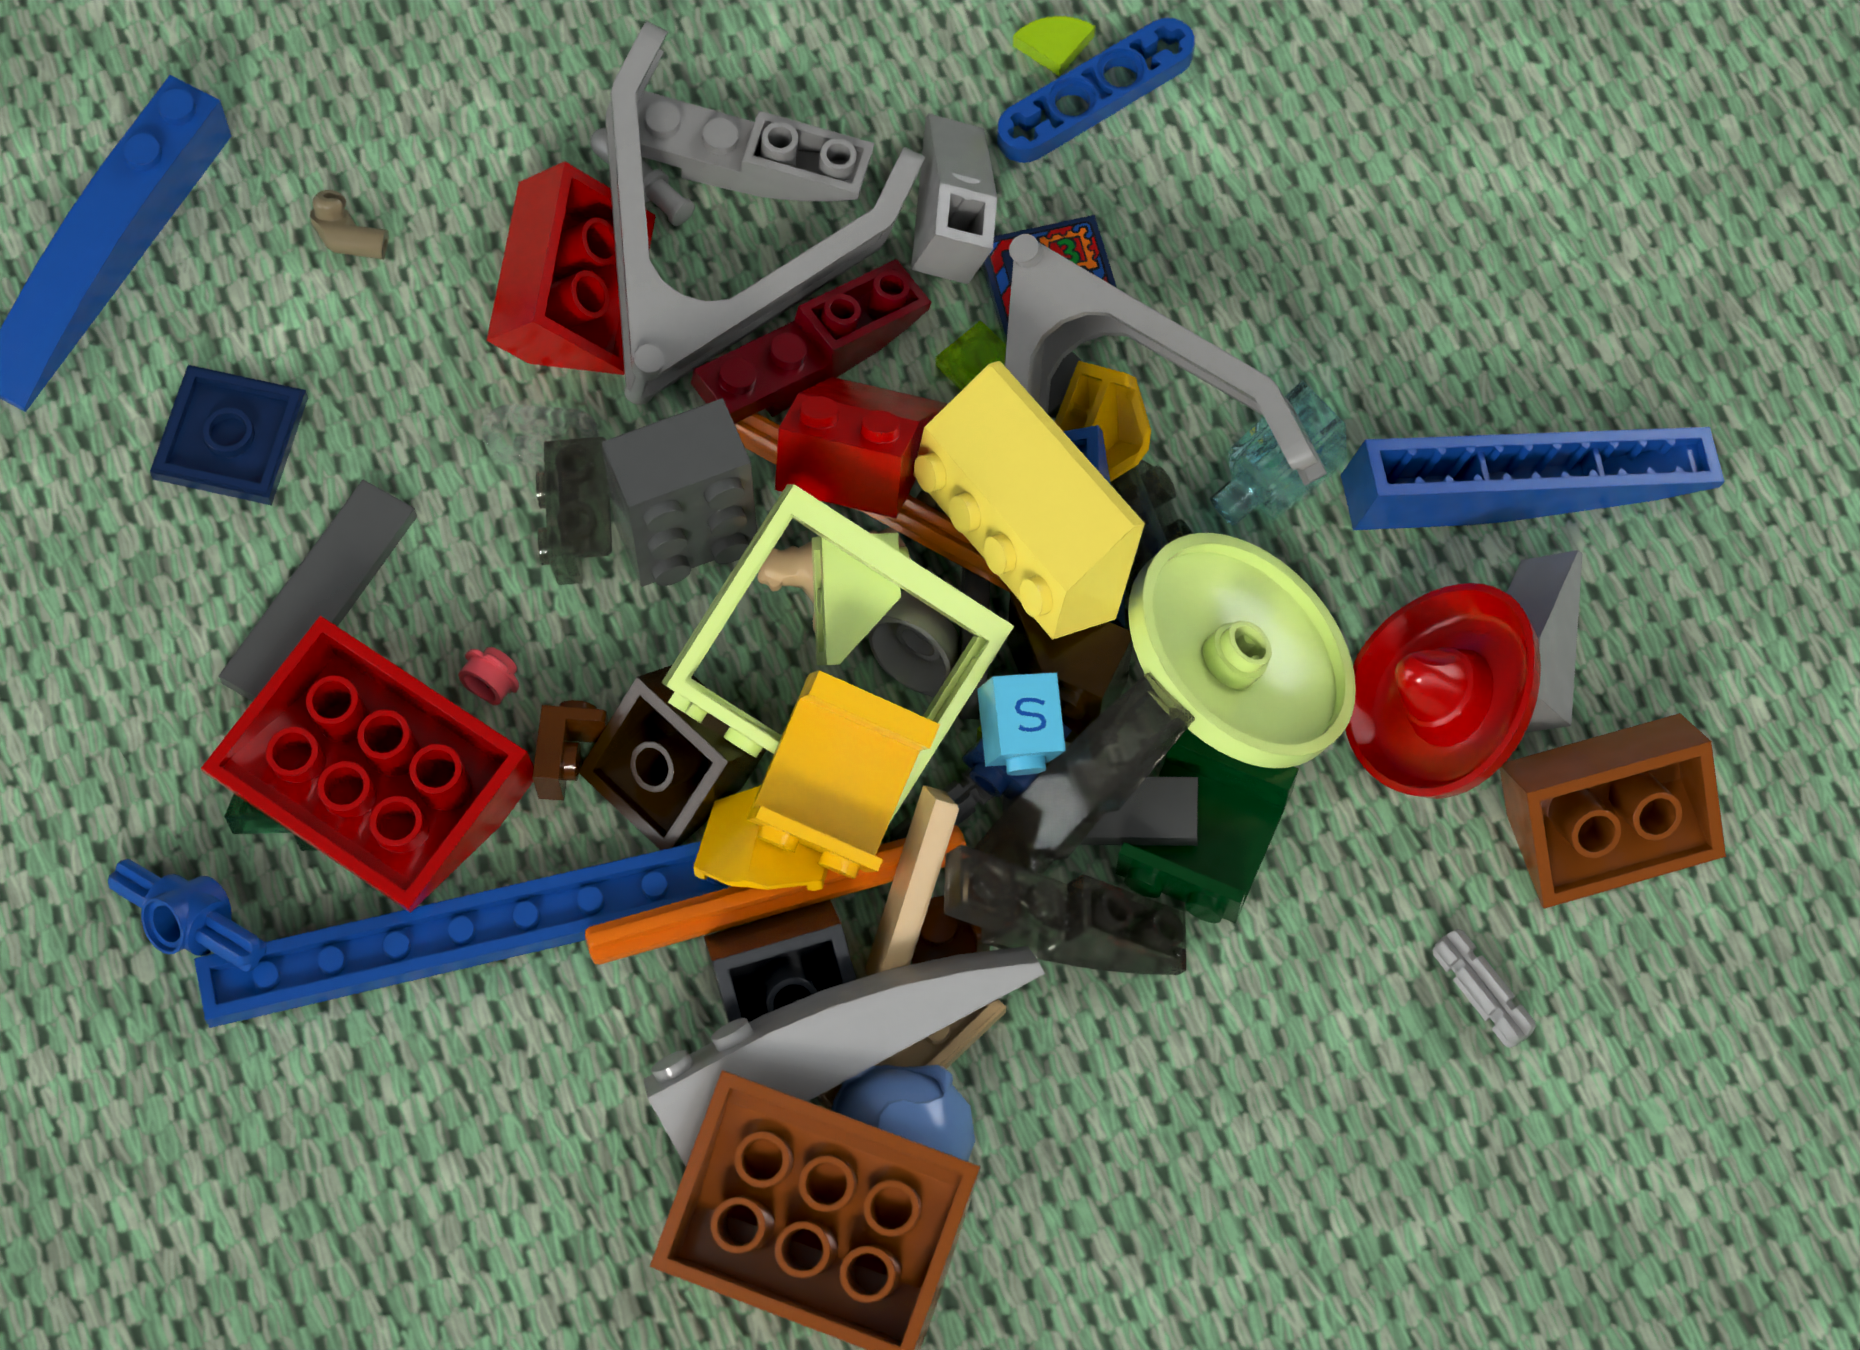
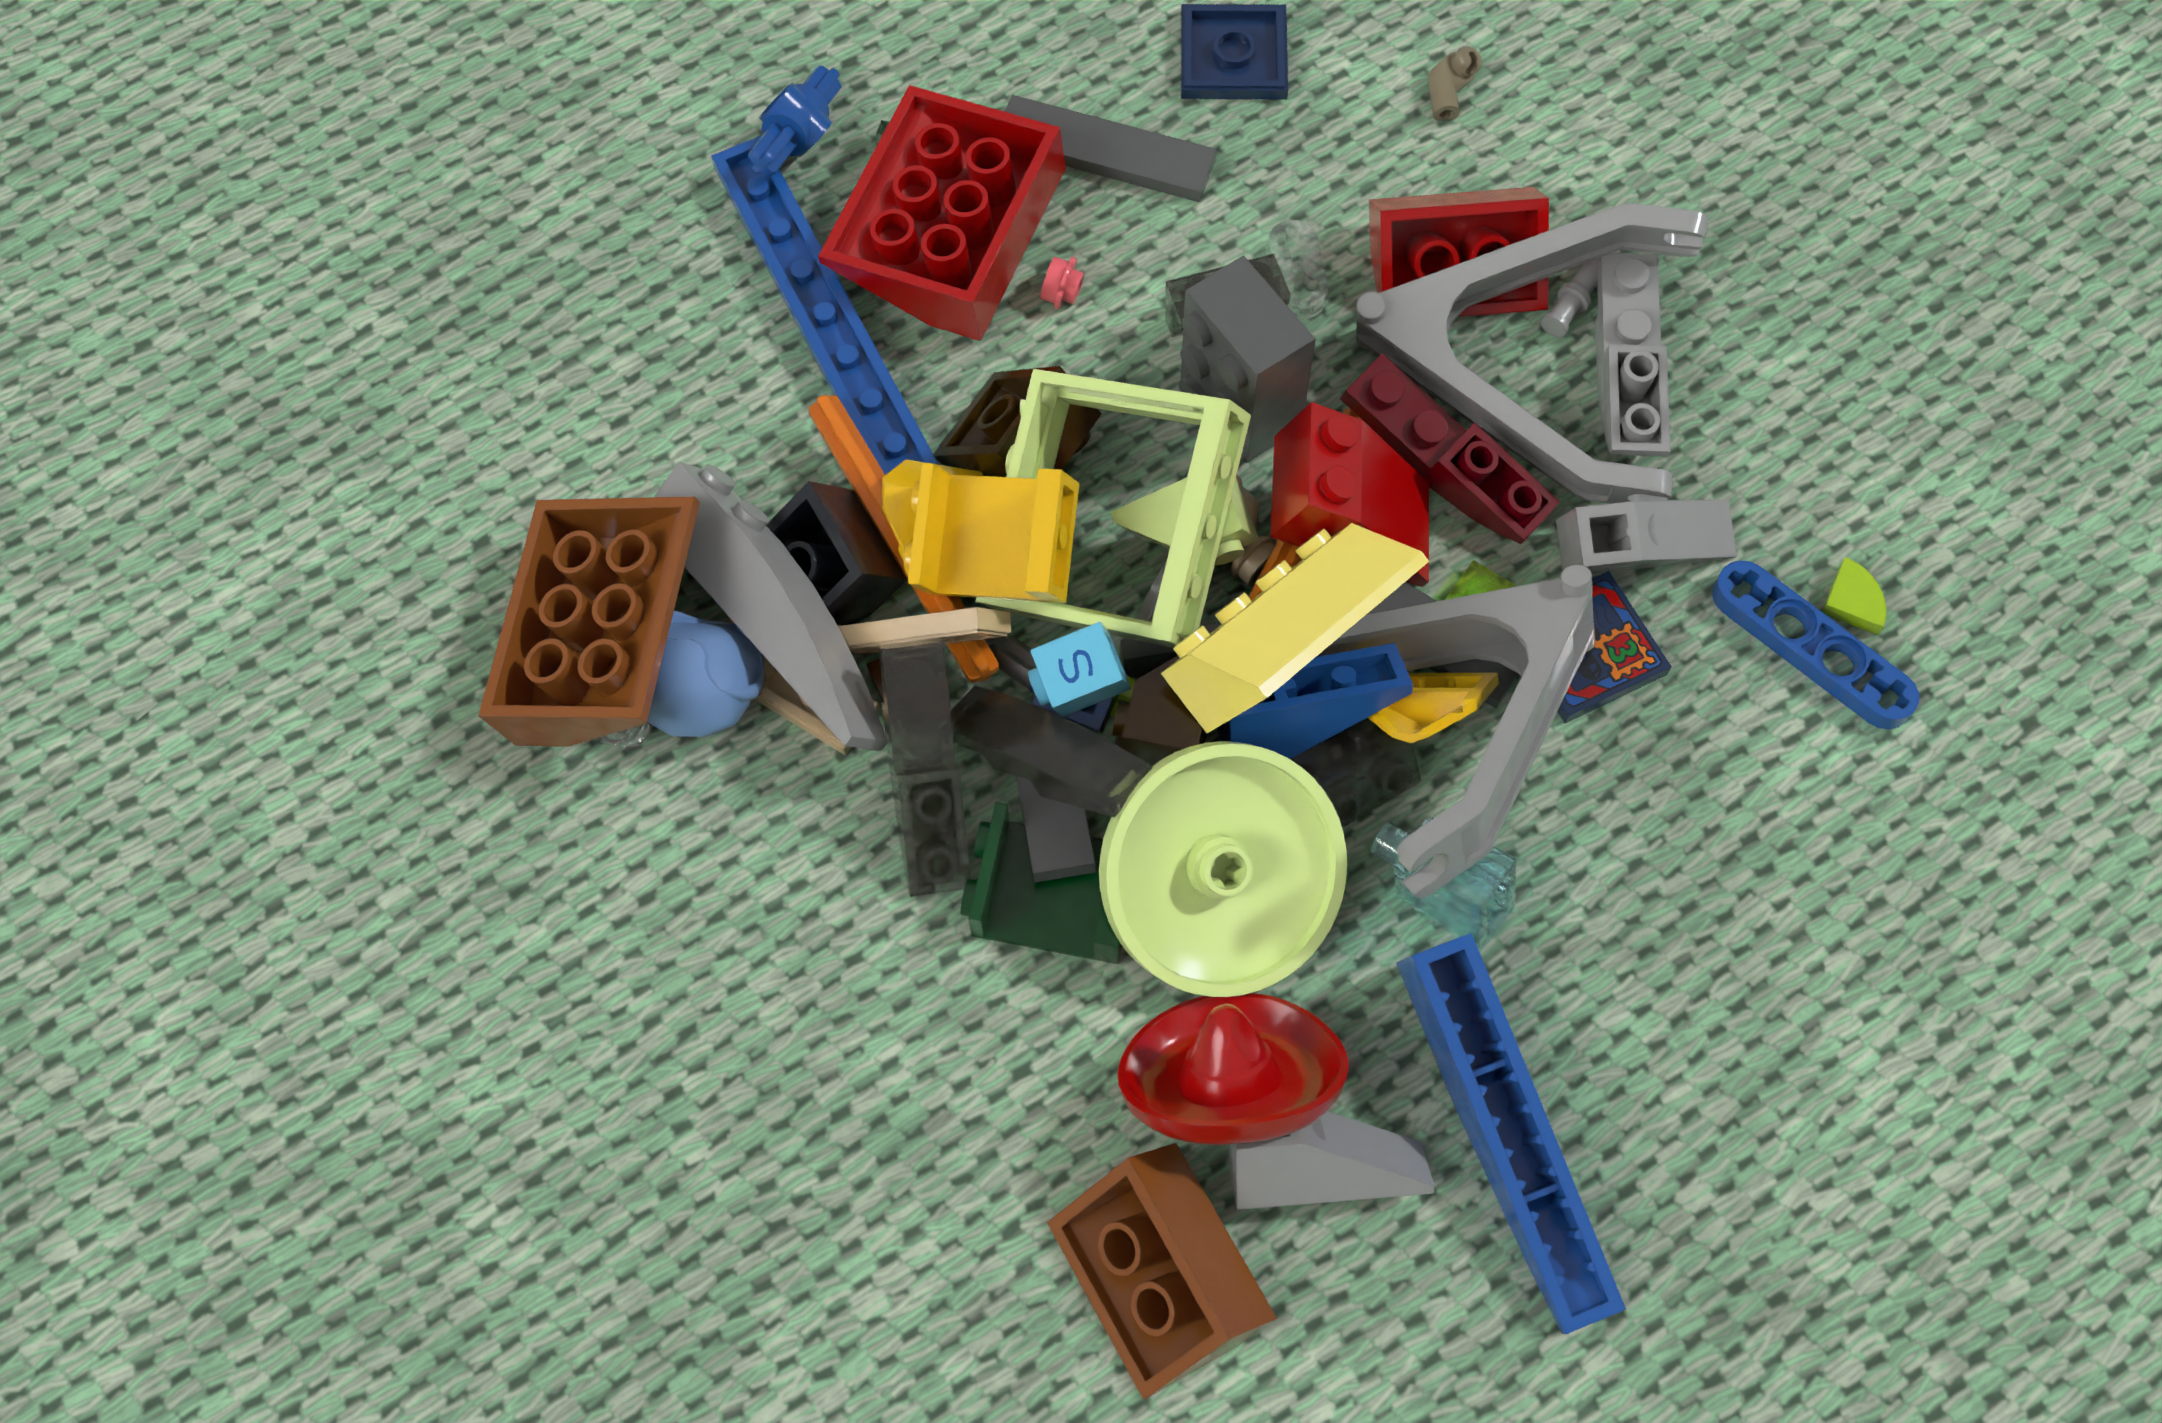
camera: 80 degrees right, 0 degrees up
(555, 755) = (1001, 342): reddish brown bracket -> none
(1484, 988) = (948, 1174): light grey axle -> none

